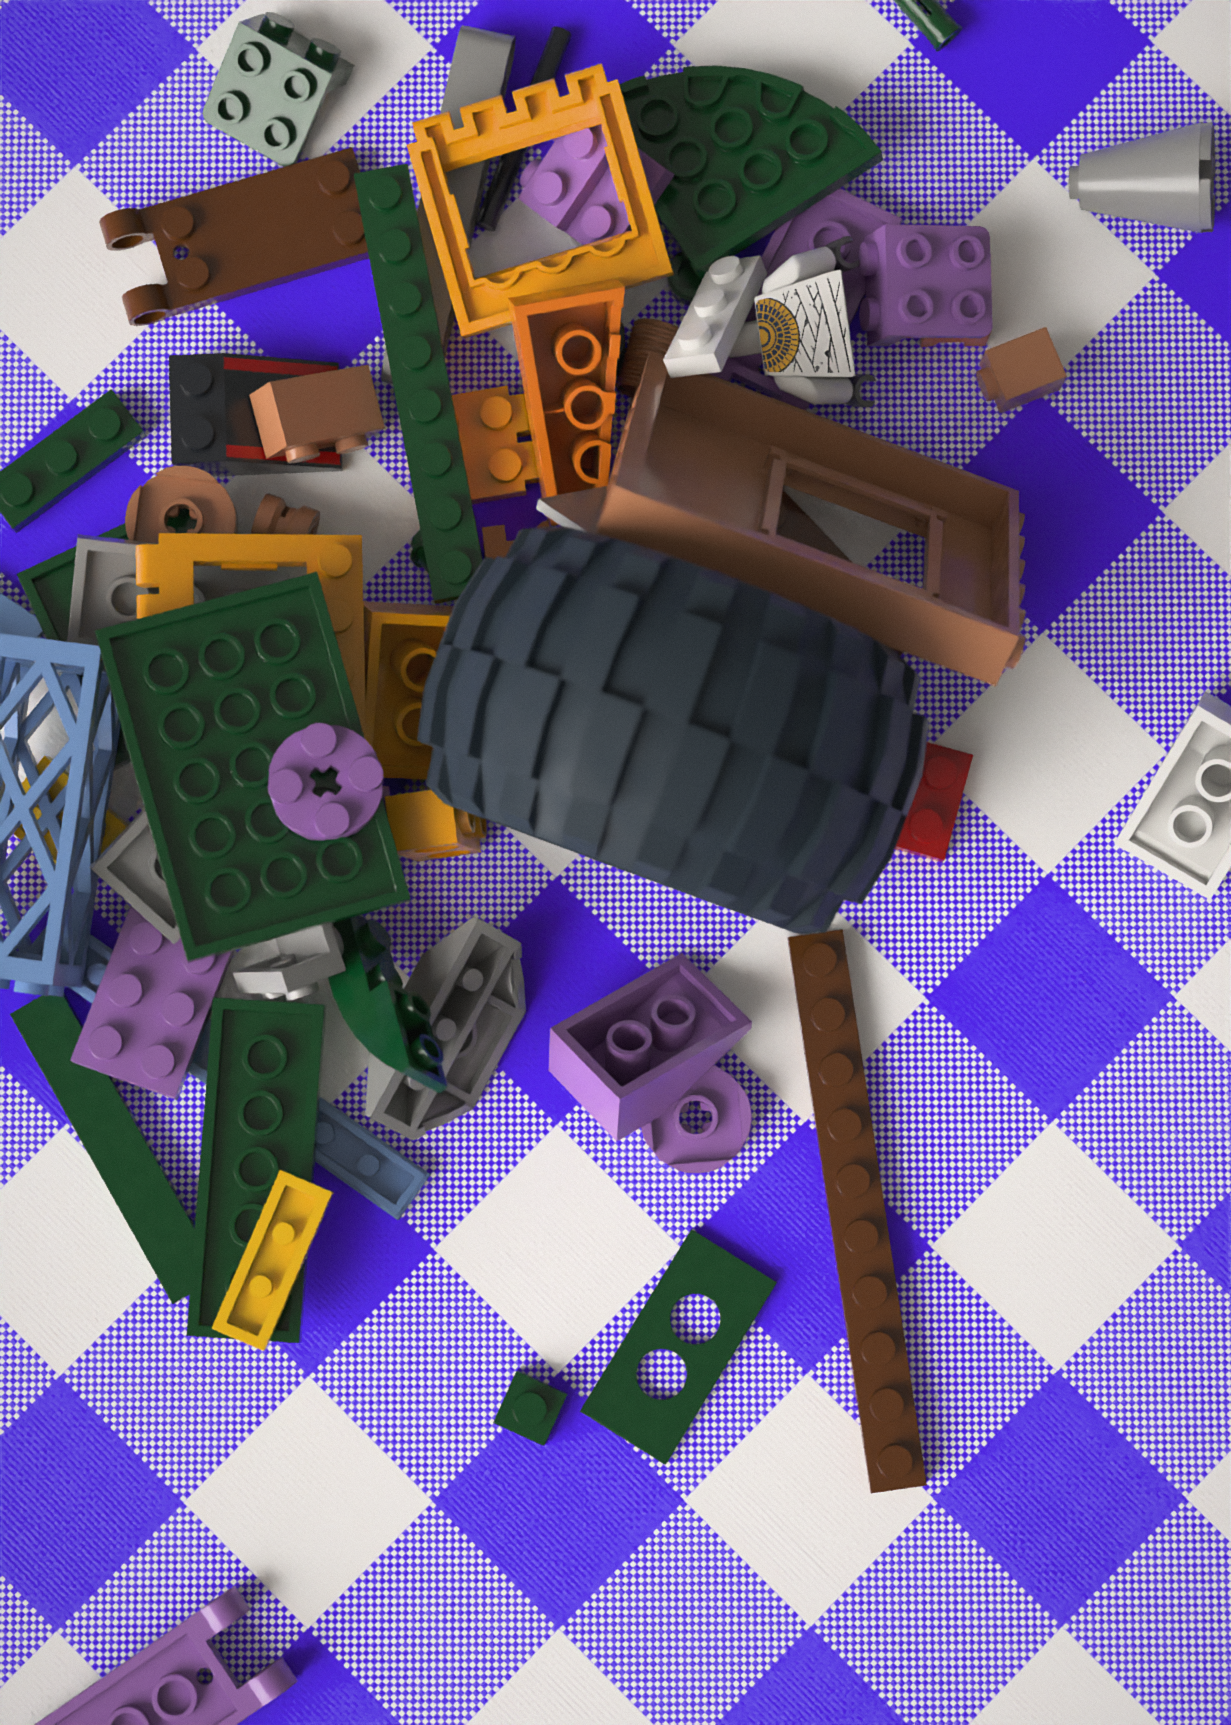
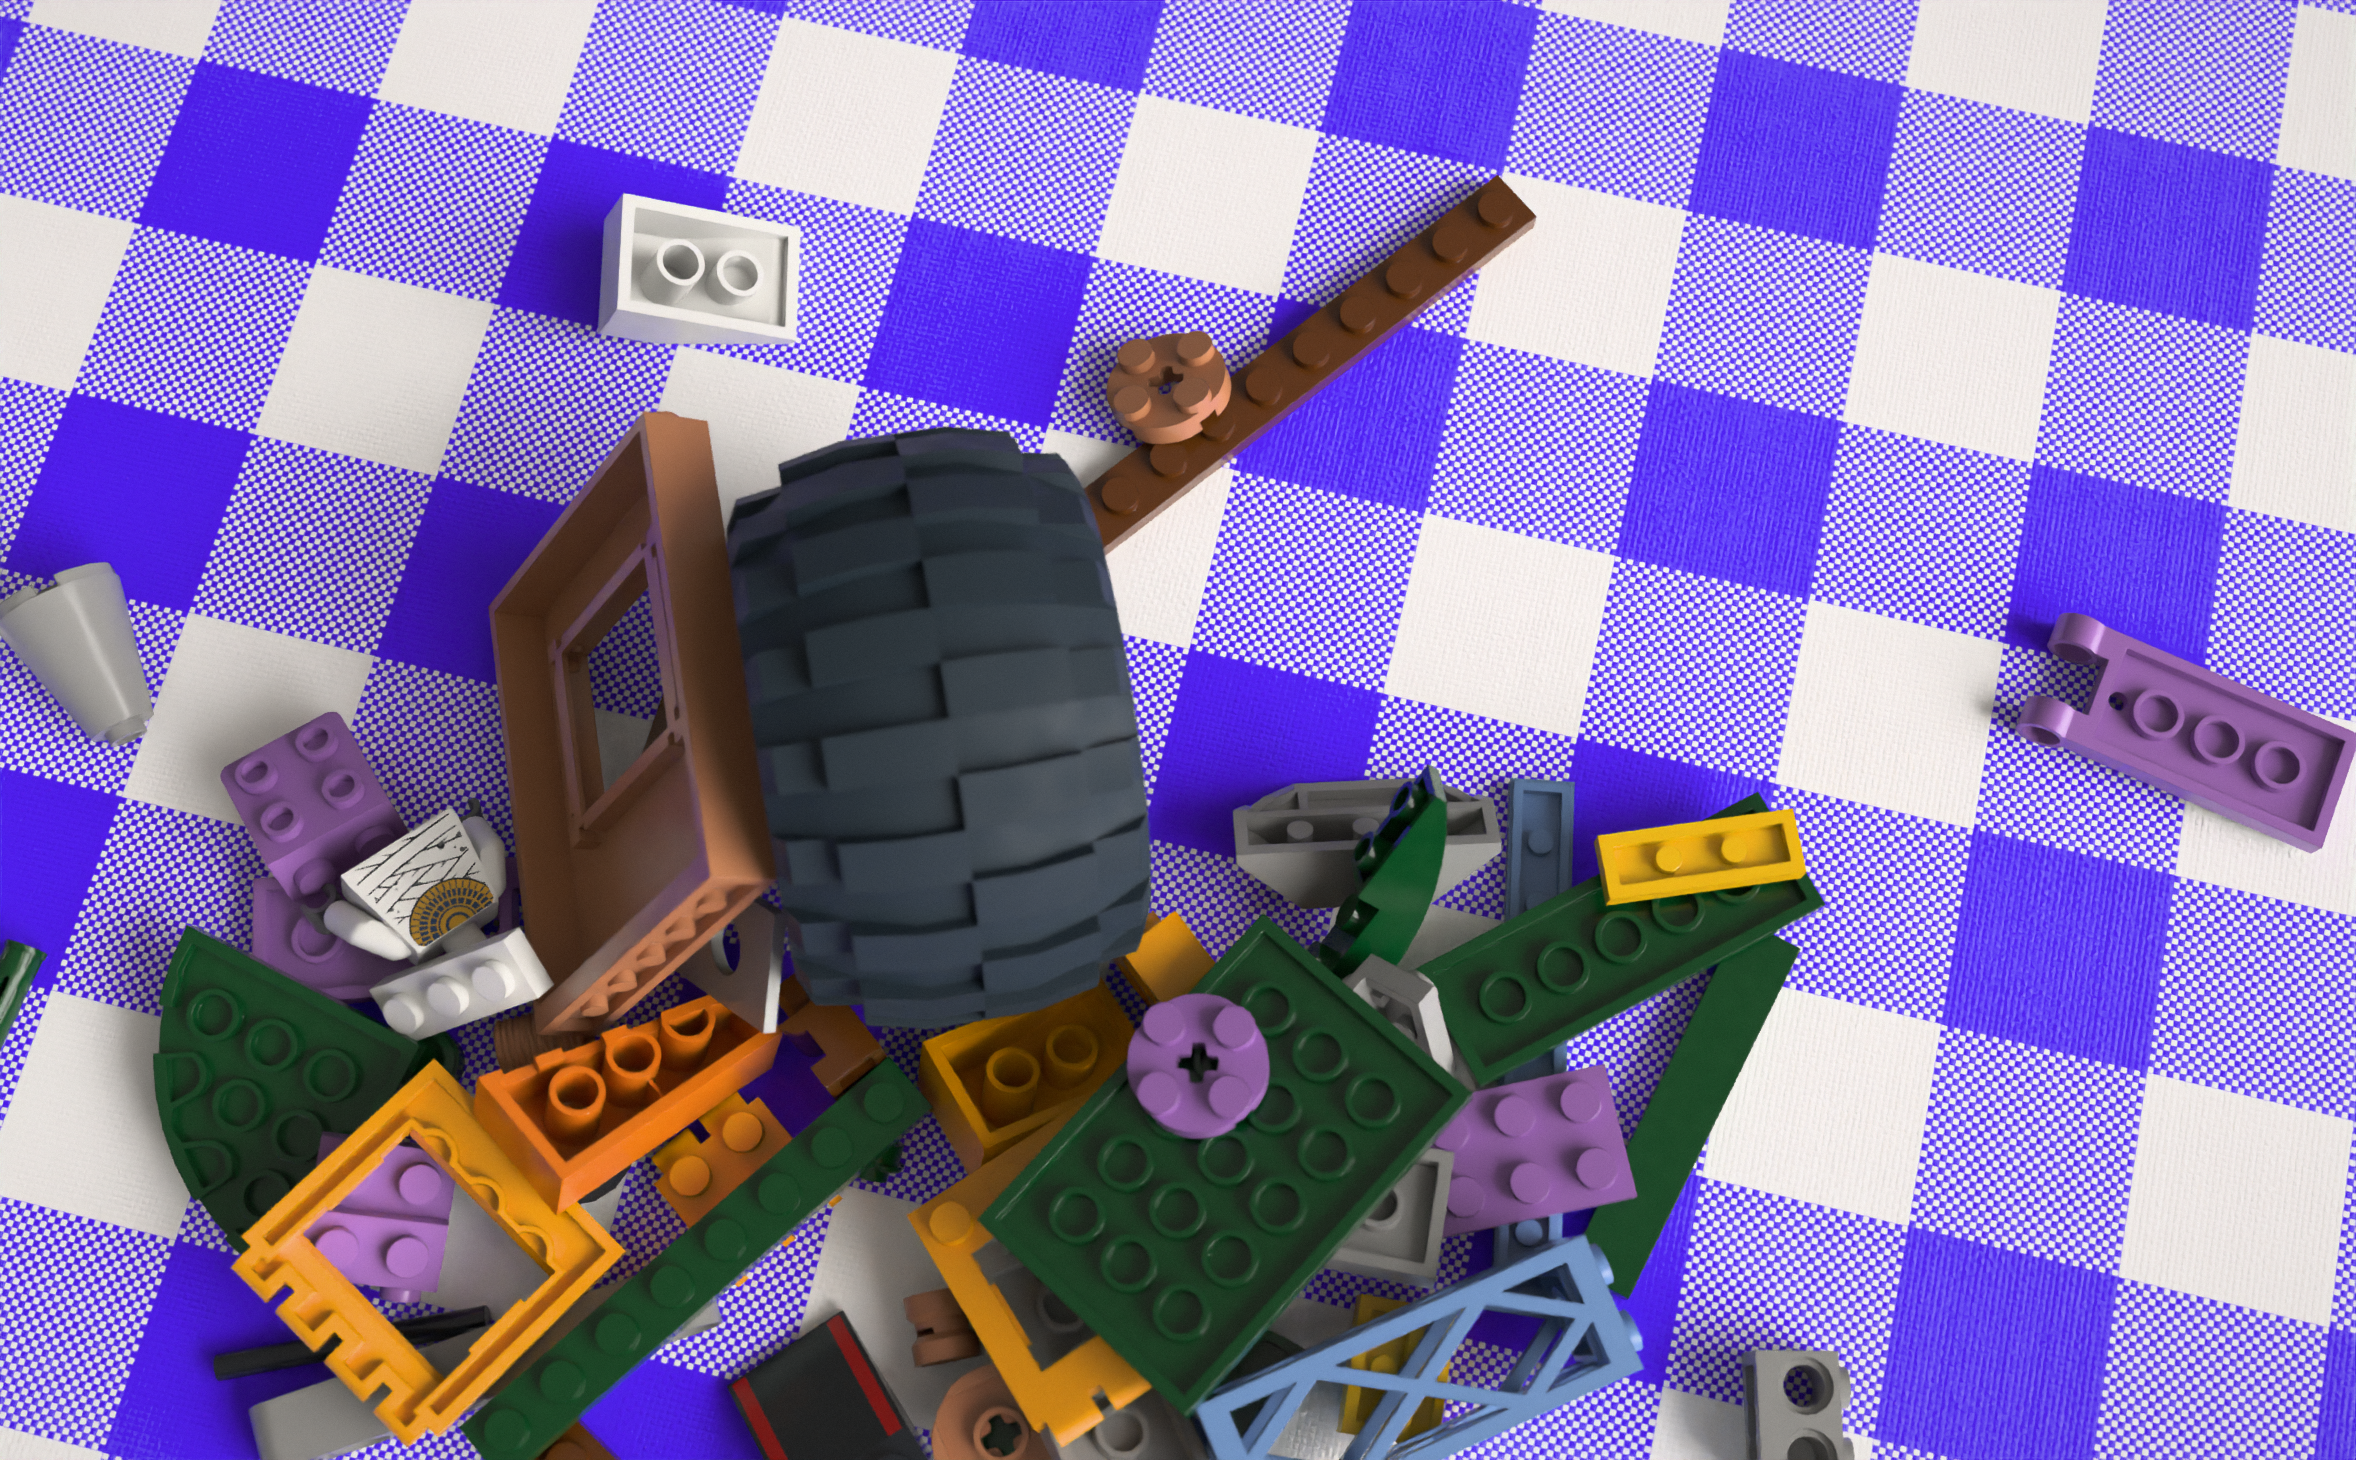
camera: 125 degrees left, 10 degrees down
(317, 413) = (797, 1361): nougat brick -> none
(530, 1408) = (1664, 557): dark green plate -> none
(644, 1045) = (1256, 638): medium lavender slope -> none
(661, 1423) = (1598, 435): dark green piece -> none
(719, 1138) = (1293, 597): medium lavender plate -> none
(924, 1097) = (1165, 359): none -> nougat plate
(1020, 370) = (359, 673): nougat brick -> none

